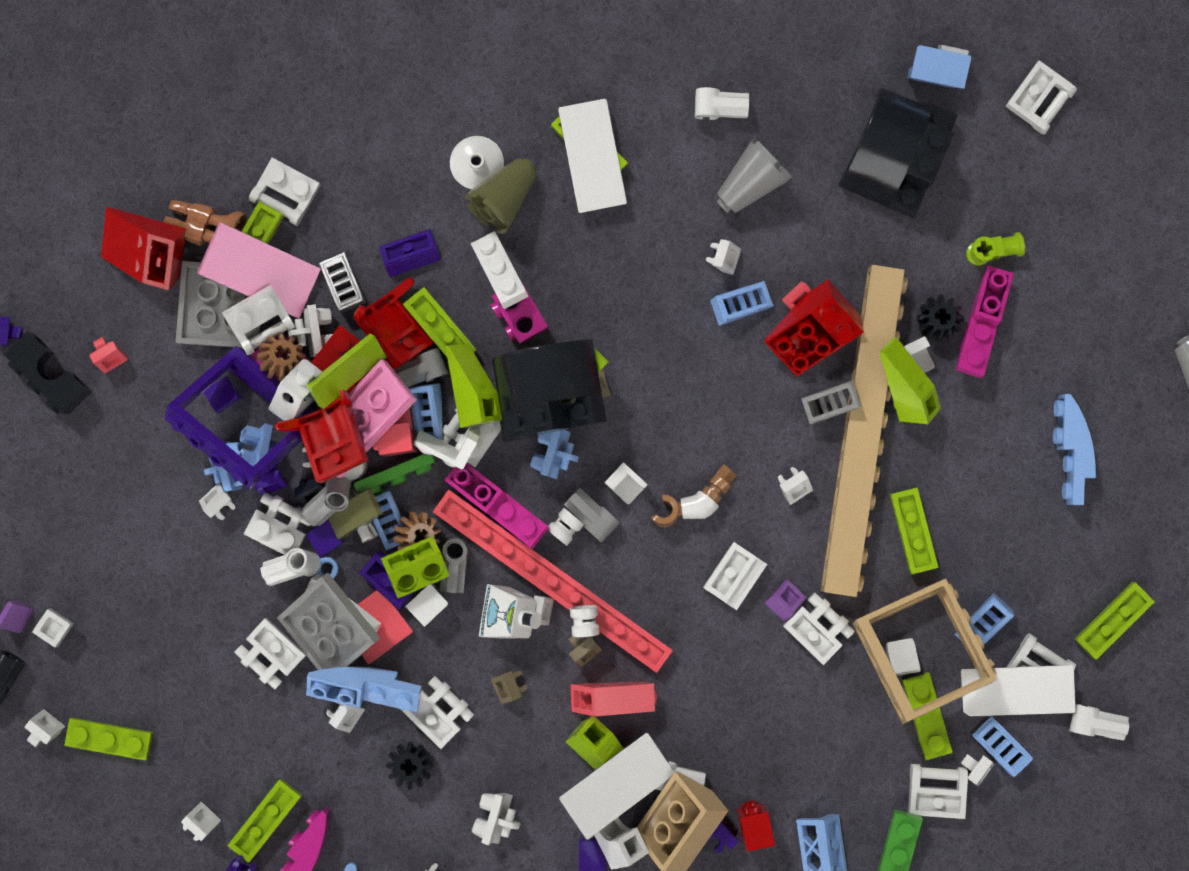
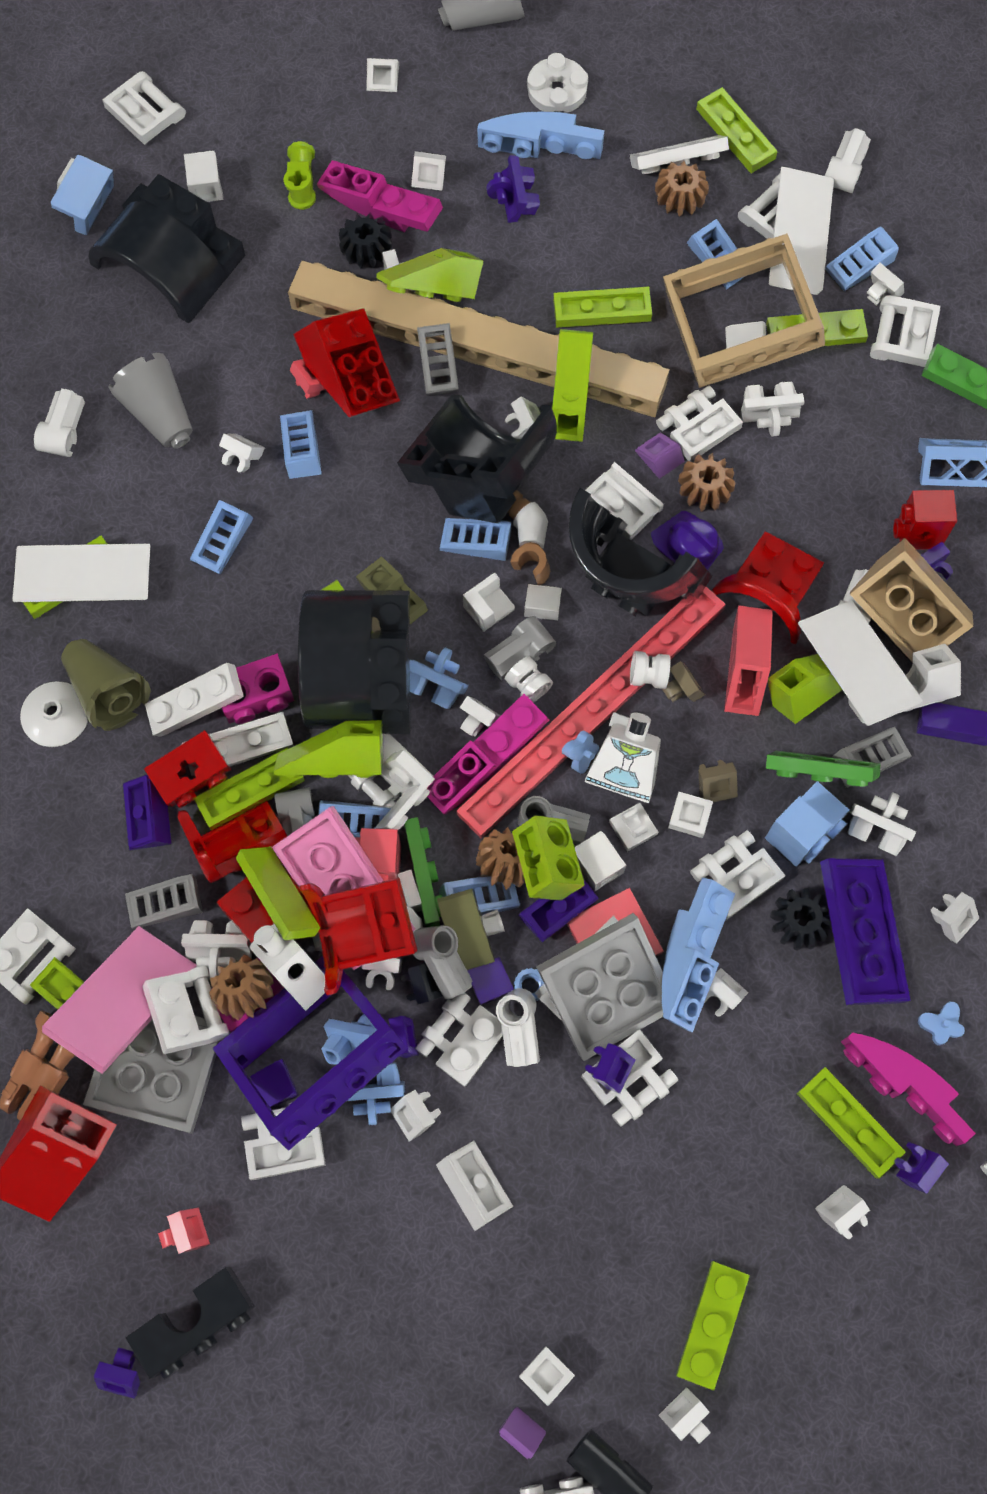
camera: 75 degrees left, 15 degrees down
(166, 395) = (270, 1158): none -> white plate
(176, 553) = (474, 1185): none -> white slope
(269, 641) = (612, 1068): none -> dark purple tile
(378, 463) = (410, 890): none -> white tile
(407, 814) = (864, 931): none -> dark purple tile
(454, 287) = (167, 770): none -> red brick
(462, 627) = (633, 827): none -> white tile
(473, 311) = (252, 739): none -> white plate
(475, 670) = (690, 814): none -> white tile
(483, 760) = (805, 824): none -> light blue brick
(512, 577) = (581, 751): none -> light blue piece
(529, 493) = (479, 715): none -> white tile
(529, 767) = (823, 768): none -> bright green plate
(536, 788) = (892, 736): none -> light grey slope
(624, 403) = (383, 576): none -> olive slope
(637, 526) = (542, 602): none -> white slope
(666, 591) = (626, 567): none -> black piece
(668, 265) = (216, 520): none -> light blue slope
(682, 485) = (486, 549): none -> light blue slope
(686, 709) = (776, 576): none -> red piece
(711, 634) = (690, 535): none -> dark purple piece
(743, 457) = (472, 462): none -> black piece
(770, 635) = (698, 491): none -> medium nougat gear
(820, 518) = (572, 383): none -> lime slope
(848, 698) = (771, 410): none -> white hips
(977, 165) = (203, 175): none -> white panel
(1013, 432) = (510, 188): none -> dark purple hips
(1019, 358) = (428, 171): none -> white tile
(1034, 585) = (681, 188): none -> medium nougat gear
(1079, 573) = (707, 148): none -> white plate
(1115, 298) = (382, 75): none -> white slope
(1150, 453) = (557, 69): none -> white plate

